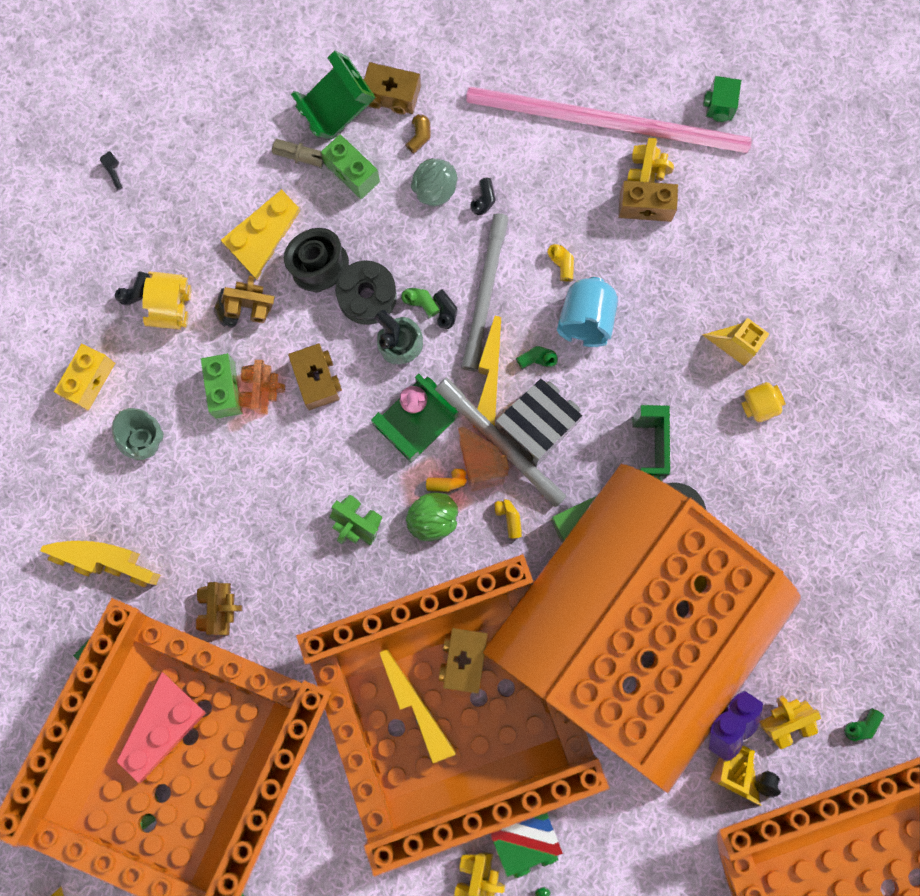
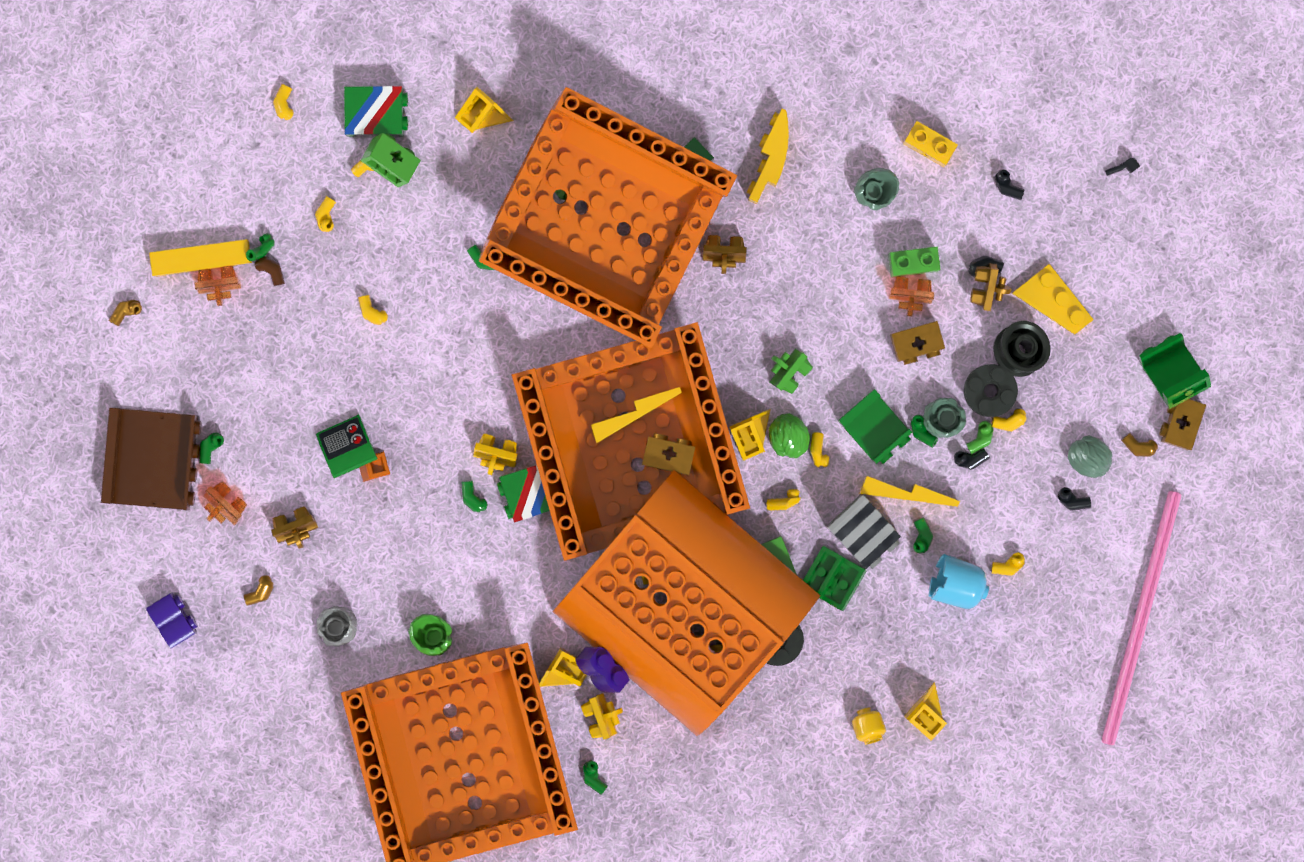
camera: 90 degrees right, 10 degrees up
(159, 729) = (632, 208): coral wing -> none
(165, 300) = (993, 216): yellow brick -> none
(297, 152) = (1127, 335): dark tan axle -> none
(350, 166) = (1108, 382): bright green brick -> none
(392, 329) = (943, 409): black arm -> none
(402, 268) = (1011, 423): none -> yellow arm
(413, 399) = (891, 426): bright pink plate -> none
(421, 365) = (921, 433): none -> green arm
(433, 562) = (750, 434): none -> yellow slope
(474, 416) = (886, 462): light grey piece -> none
(482, 461) = (831, 481): clear orange slope -> none
(496, 238) = (936, 481): light grey piece -> none
(594, 454) = (834, 578): none -> green slope
(648, 201) = (1057, 645): pearl gold brick -> none
(652, 165) = (1090, 653): yellow hips -> none
(659, 418) = (859, 633): green panel -> none
(722, 98) = (1151, 722): green brick -> none
(768, 784) = (553, 693): black piece -> none

